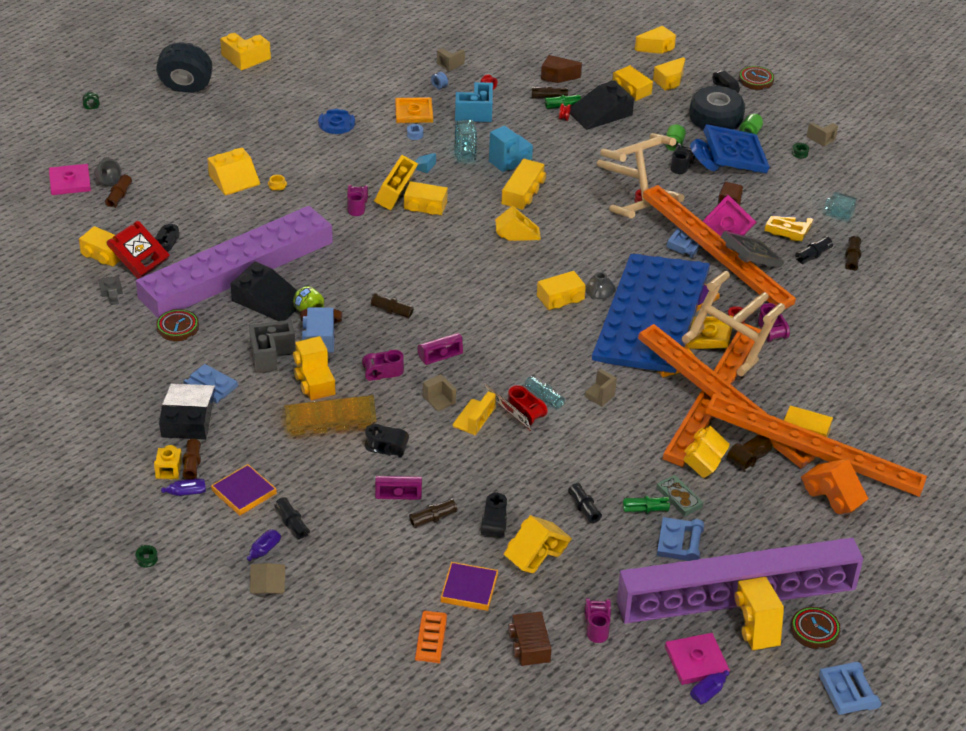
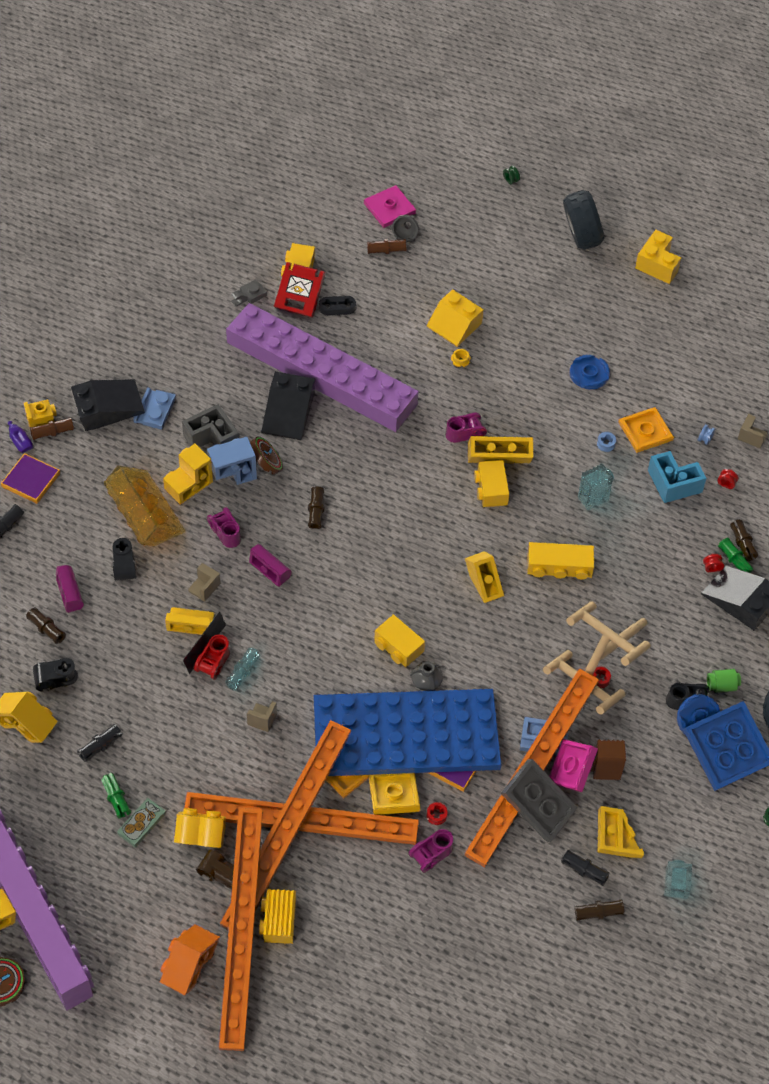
camera: 70 degrees right, 15 degrees up
(177, 325) = (221, 357): tile -> none
(308, 298) = (288, 440): lime head -> none
(426, 162) = (557, 466): dark azure slope -> none
(508, 149) = (605, 531): dark azure brick -> none
(672, 539) = (81, 829): medium blue plate -> none
(736, 322) = (368, 828): tan piece -> none

